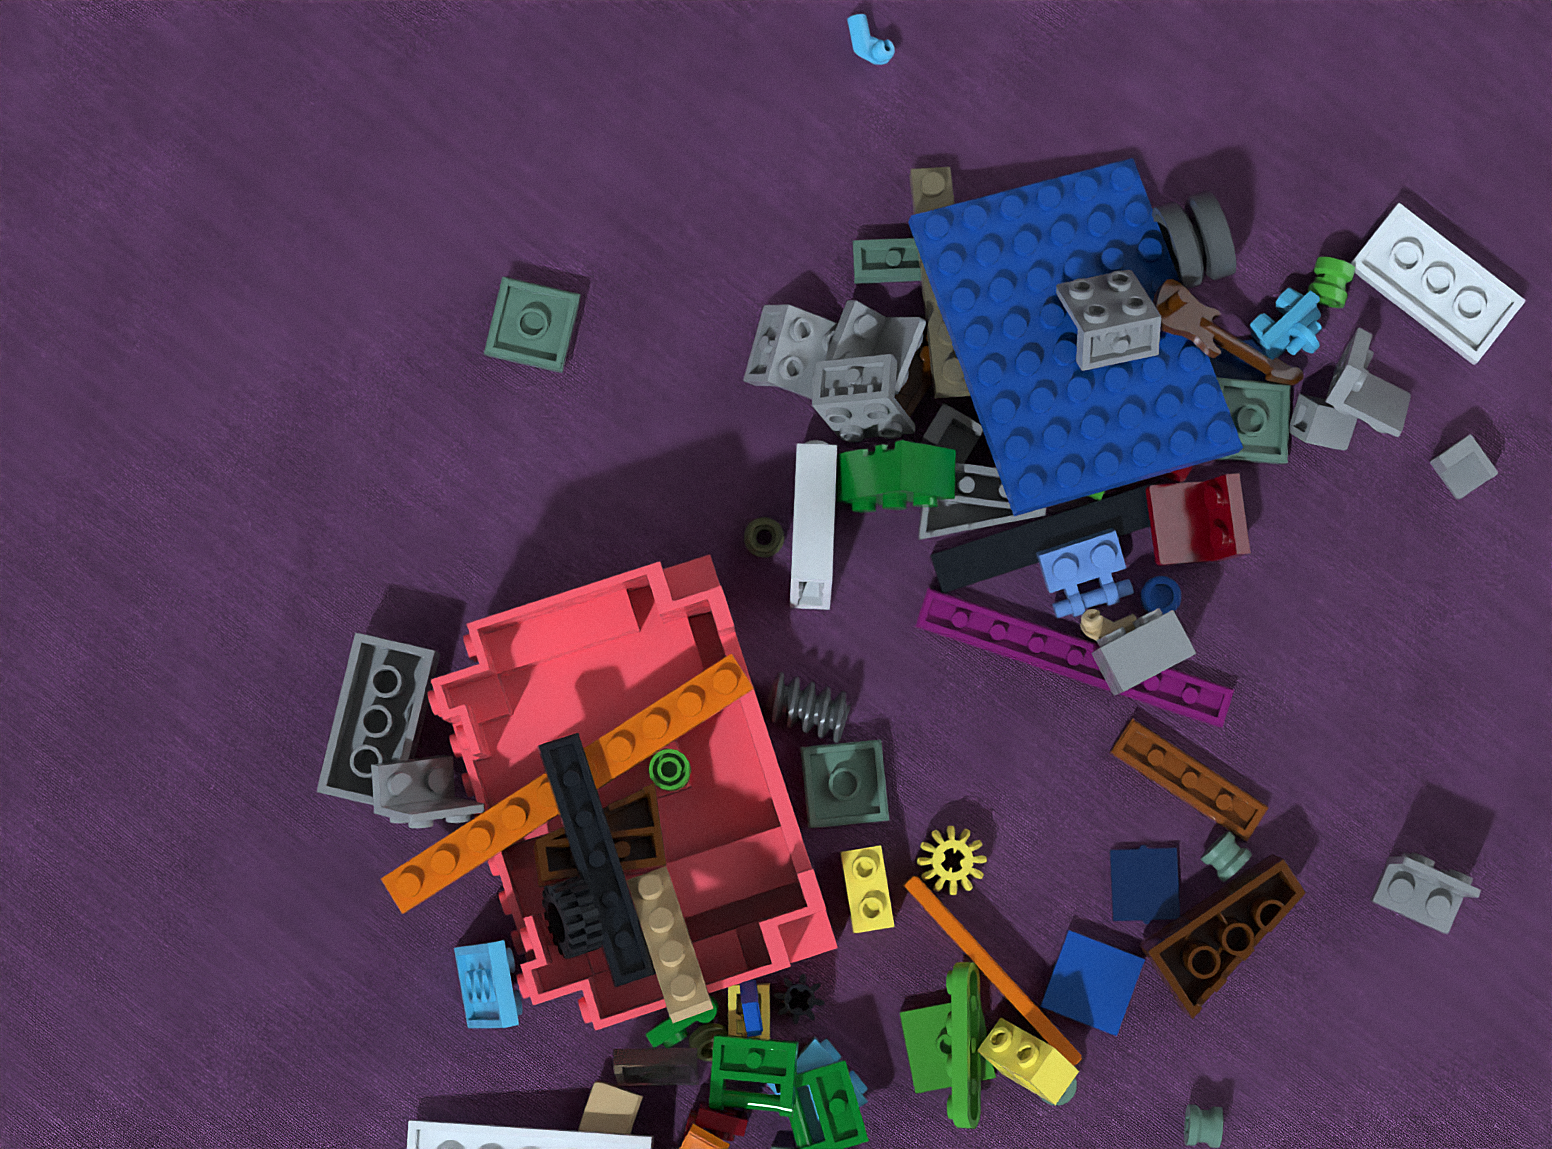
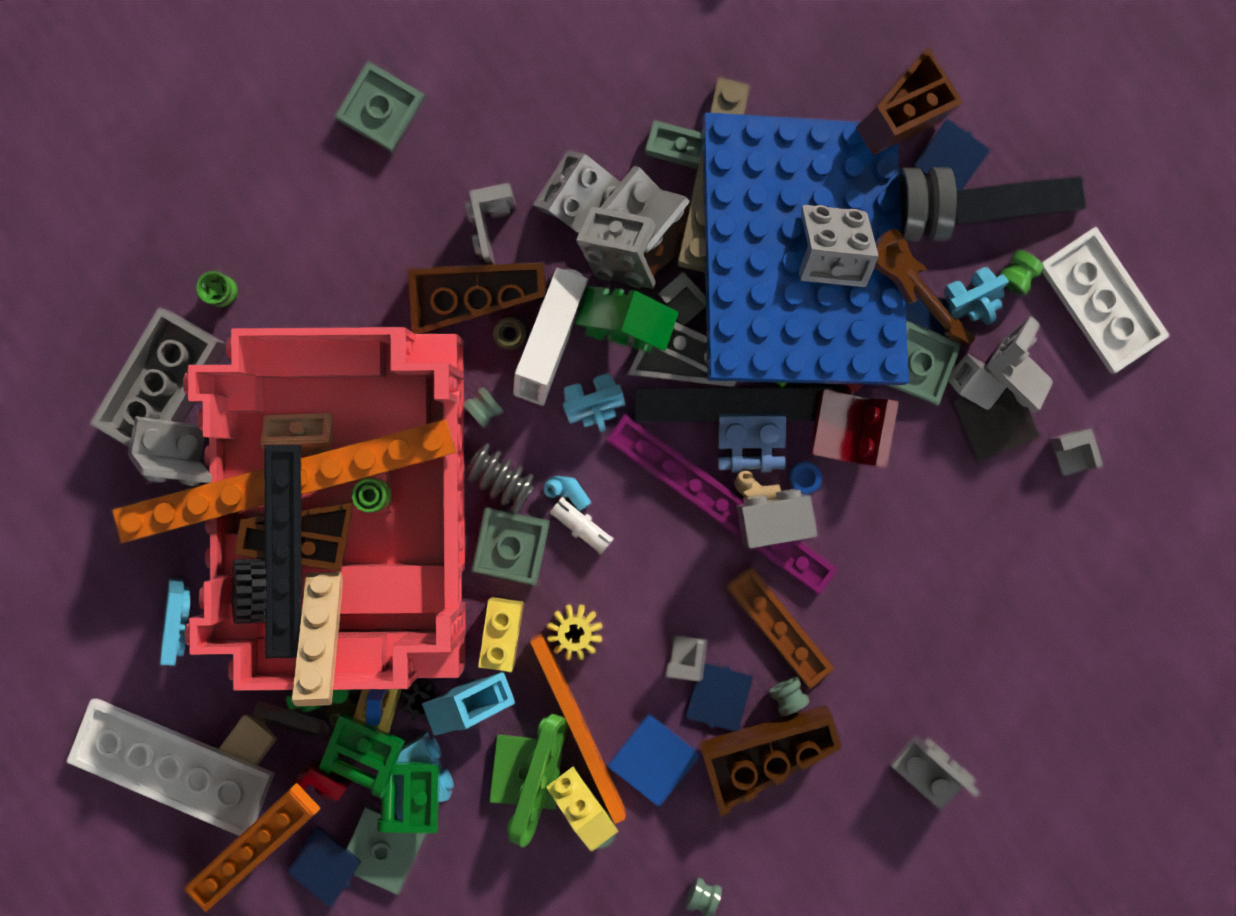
camera: 20 degrees right, 5 degrees up
(403, 590) = (211, 285): none -> bright green wheel
(558, 721) = (310, 431): none -> tan slope
(701, 505) = (466, 292): none -> reddish brown wedge
(704, 392) = (491, 200): none -> light grey bracket
(761, 631) = (483, 407): none -> sand green wheel
(856, 979) = (468, 703): none -> medium azure hips
(889, 591) = (595, 406): none -> medium azure hips
(889, 695) = (566, 487): none -> medium azure arm
(919, 733) = (581, 525): none -> white pin
(1093, 849) = (687, 658): none -> light grey panel
(1140, 134) = (910, 105): none -> reddish brown wedge
(1209, 167) = (953, 149): none -> dark blue piece
(1301, 201) = (1019, 200): none -> black slope
(1361, 470) = (994, 429): none -> clear smoke tile

